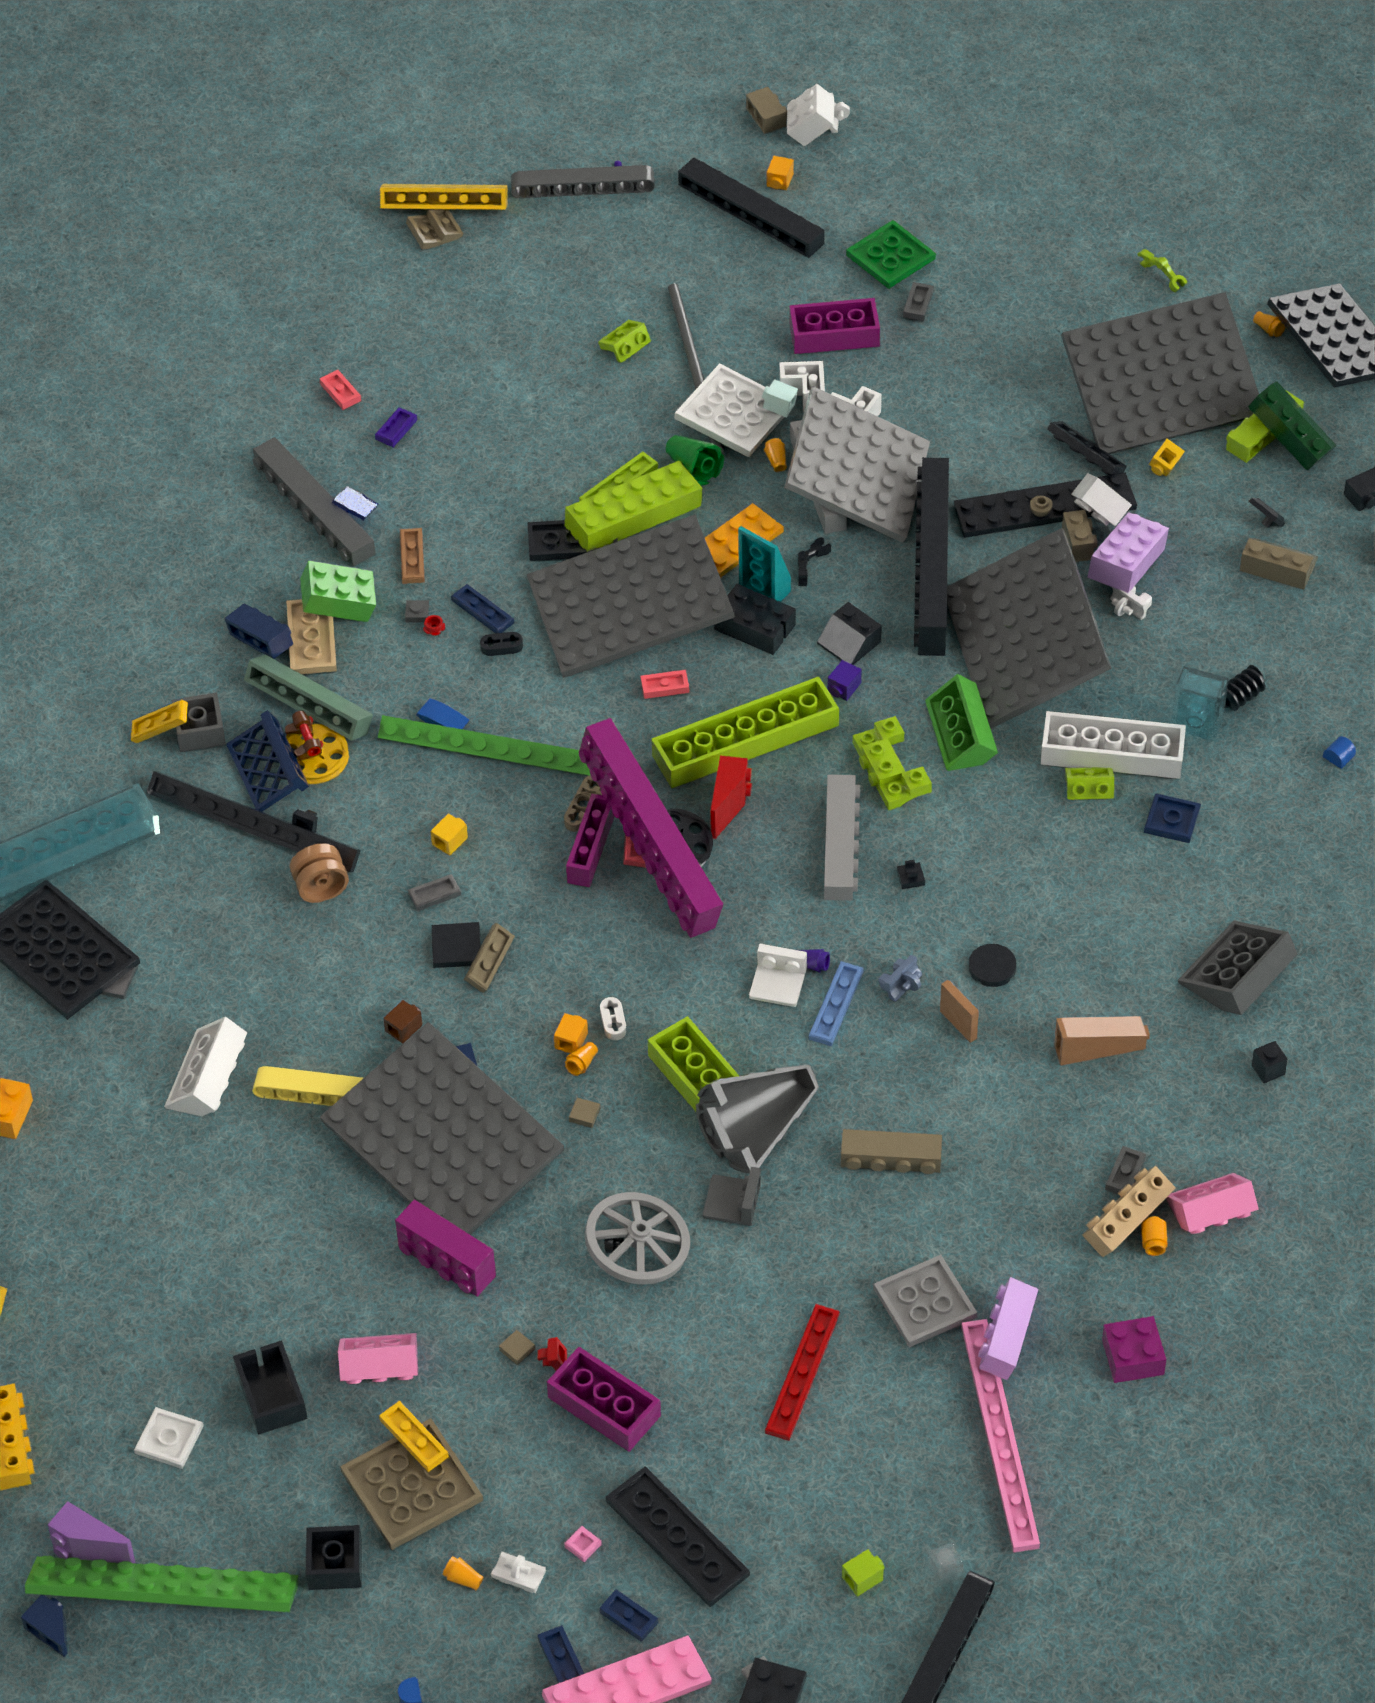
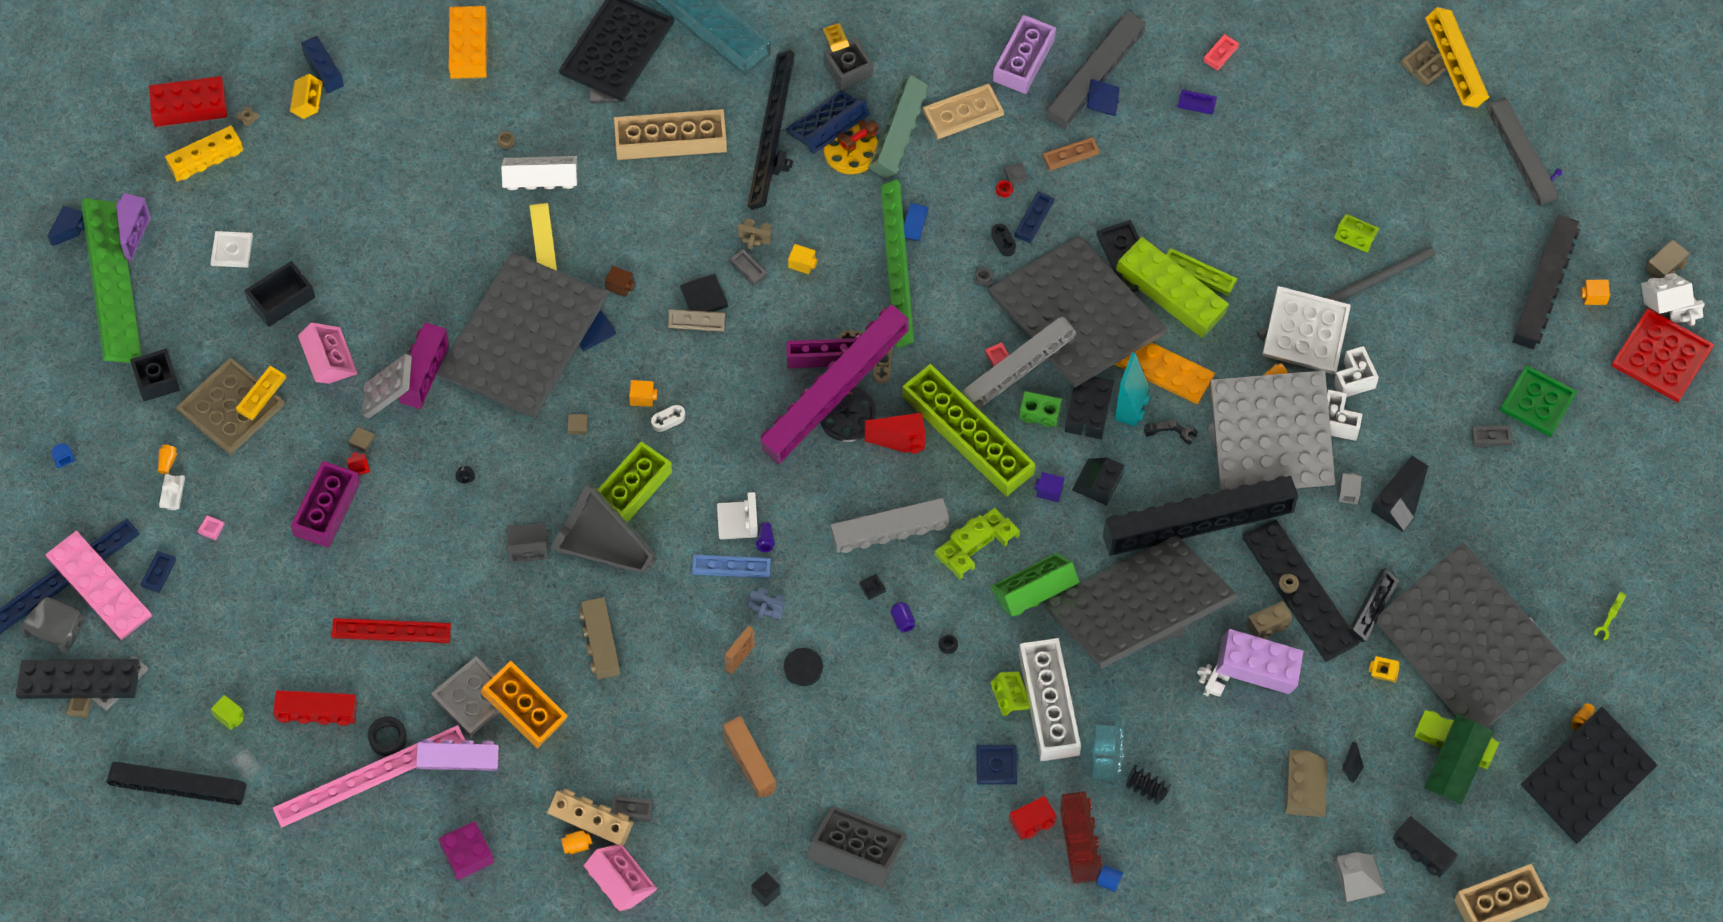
camera: 70 degrees right, 10 degrees up
(140, 1096) = (505, 140): none -> dark tan plate
(217, 920) = (670, 134): none -> tan brick
(259, 631) = (950, 74): dark blue brick -> none
(263, 556) = (1024, 54): none -> lavender brick
(319, 873) = (730, 183): medium nougat wheel -> none
(338, 591) = (1003, 111): bright green brick -> none
(396, 874) = (753, 235): none -> dark tan hips
(469, 1283) = (387, 386): none -> light grey plate
(543, 668) = (983, 272): none -> dark grey plate
(579, 1060) = (623, 407): light orange cone -> none
(637, 1235) = (470, 492): light grey wheel -> none
(677, 1536) = (229, 585): black plate -> none
(682, 653) = (1019, 362): none -> light grey beam
(697, 456) = (1241, 317): green cone -> none
(741, 664) = (1041, 405): none -> bright green brick
(779, 398) = (1327, 357): light aqua brick -> none
(834, 325) = (1431, 378): magenta brick -> none
(874, 146) = (1662, 355): none -> red plate
(886, 1473) = (315, 707): none -> red brick
(940, 429) = (1350, 488): none -> light grey brick
(949, 1421) = (383, 722): none -> black tyre
(962, 395) = (1401, 495): none -> black wedge
(962, 854) = (902, 617): none -> dark purple brick
(963, 1240) = (524, 704): none -> light orange brick
(1008, 817) = (948, 639): none -> black plate
(1101, 499) = (1304, 624): white brick -> none
(1251, 798) = (1033, 818): none -> red brick
(1291, 758) = (1079, 837): none -> clear red brick

